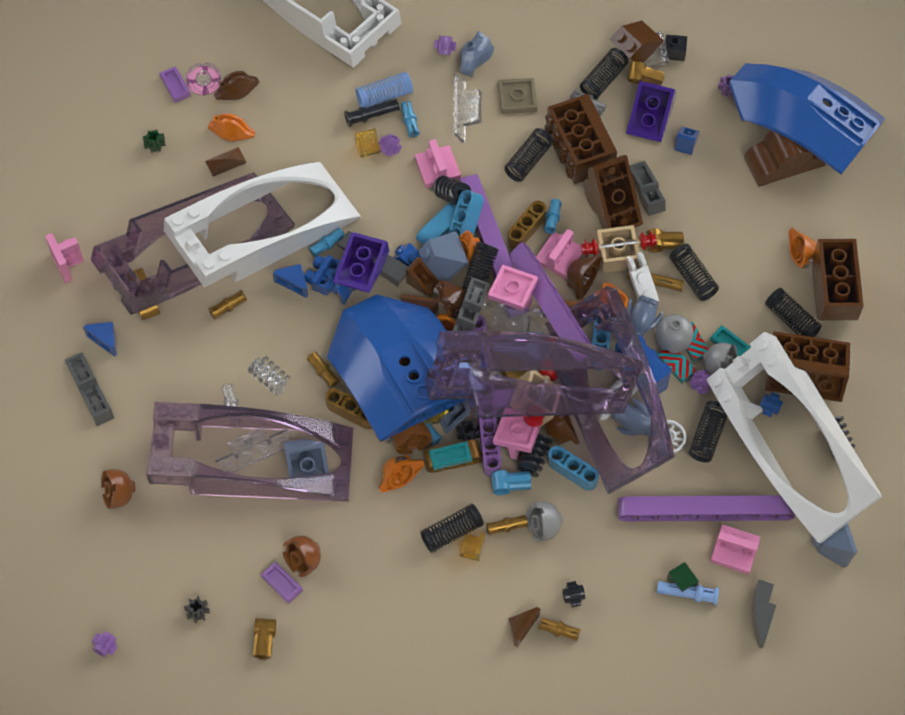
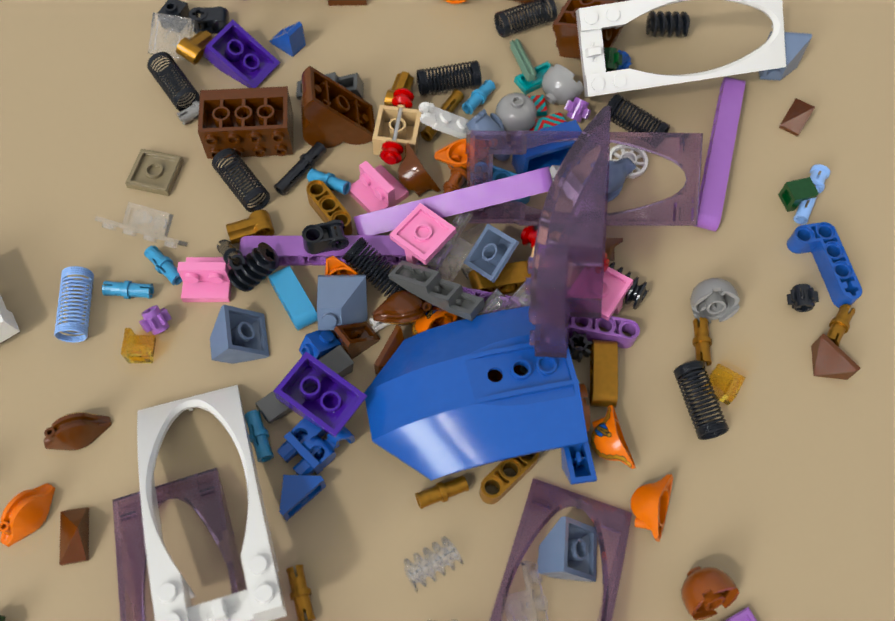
camera: 75 degrees left, 0 degrees up
(294, 132) = (75, 431): none -> reddish brown hat
(355, 510) = (651, 505): none -> orange hat
(364, 114) = (95, 338): black pin -> none
(372, 450) = (578, 464): none -> blue slope
(397, 202) = (238, 336): none -> sand blue slope
(439, 132) = (163, 264): none -> dark azure pin
(445, 45) = (48, 220): medium lavender gear -> none
(450, 455) = (612, 371): teal tile -> none
(453, 170) = (230, 254): none -> black pin
(467, 212) = (295, 251): dark azure beam -> none
(475, 53) = (78, 192): sand blue animal -> none
(493, 181) = (256, 225): none -> pearl gold piece
(494, 228) = (325, 237): none -> black piece
(506, 482) = (651, 320): dark azure piece -> none
(557, 192) = (306, 162): none -> black pin
(576, 476) = (652, 246): dark azure beam -> none
(615, 613) = (830, 259): none -> blue beam
(637, 41) = (151, 37): reddish brown slope -> none
(681, 74) = (211, 19): none -> black piece
(686, 302) = (478, 97): none -> dark azure pin
(735, 549) = (767, 140): bright pink bracket -> none
(741, 325) = (523, 60): none -> sand green axle
(759, 389) = (612, 59): none -> dark green gear
(762, 611) = (844, 139): dark grey slope -> none
(779, 573) = (796, 117): none -> reddish brown slope

